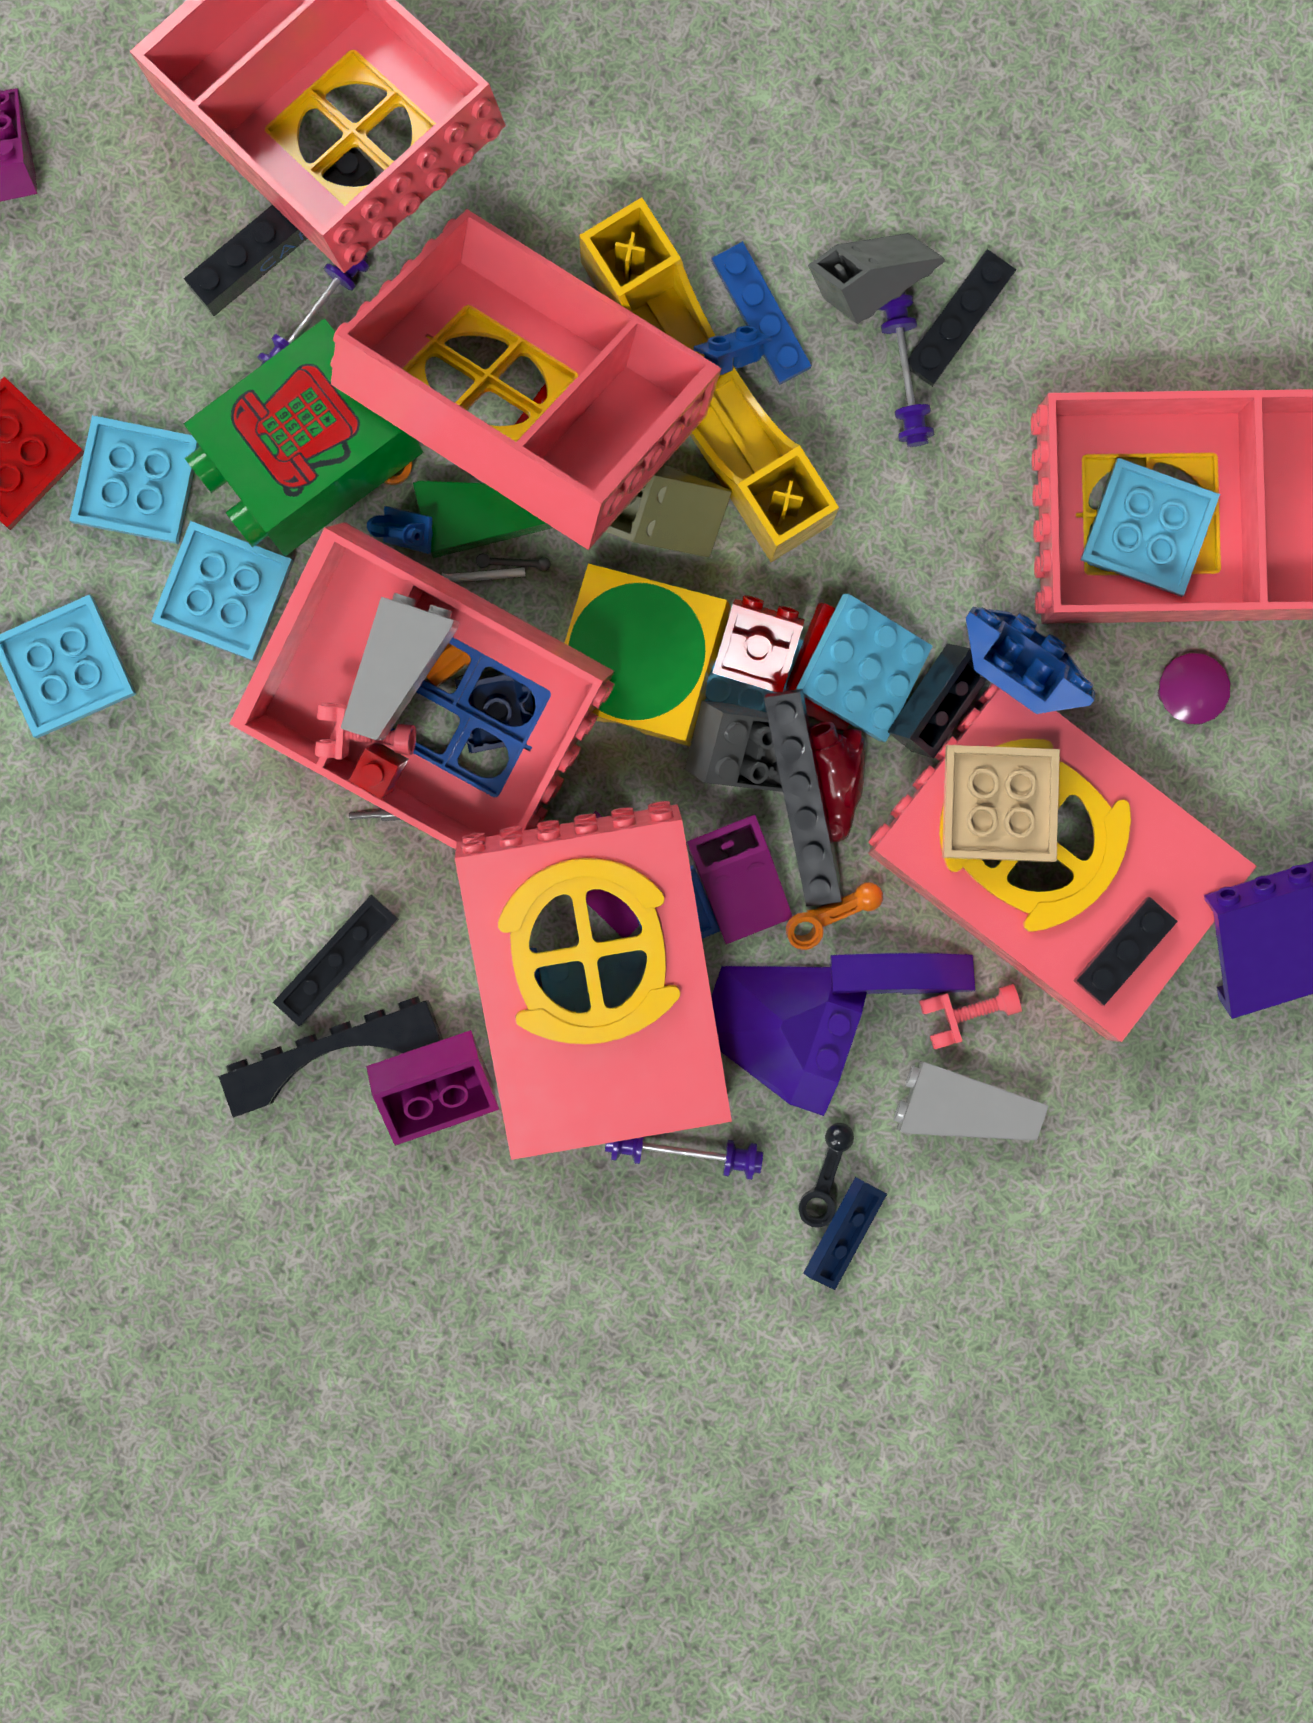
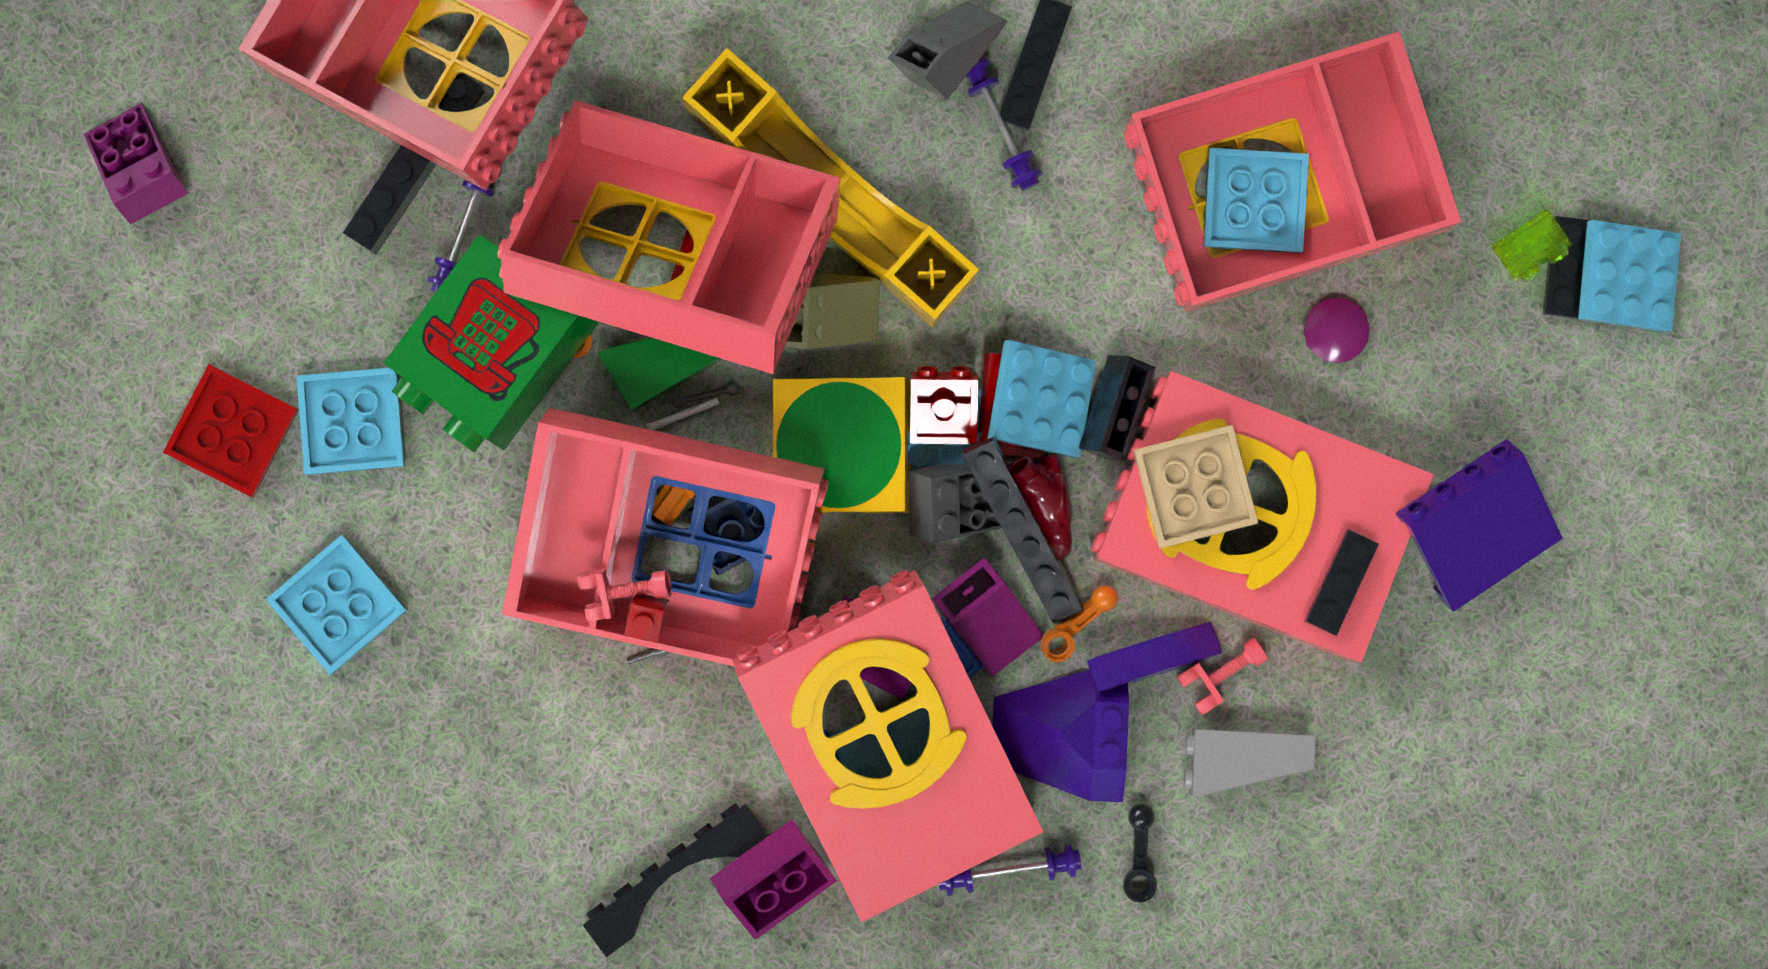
camera: 15 degrees left, 0 degrees up
(222, 591) = (457, 497): medium azure plate -> none
(336, 960) = (654, 792): black plate -> none
(395, 663) = (635, 521): light grey slope -> none
(403, 529) = (601, 396): blue hinge -> none
(734, 349) = (850, 146): blue hinge -> none
(761, 311) = (858, 110): blue plate -> none
(845, 1233) = (1171, 899): dark blue plate -> none
(1026, 662) = (1181, 355): blue wedge -> none

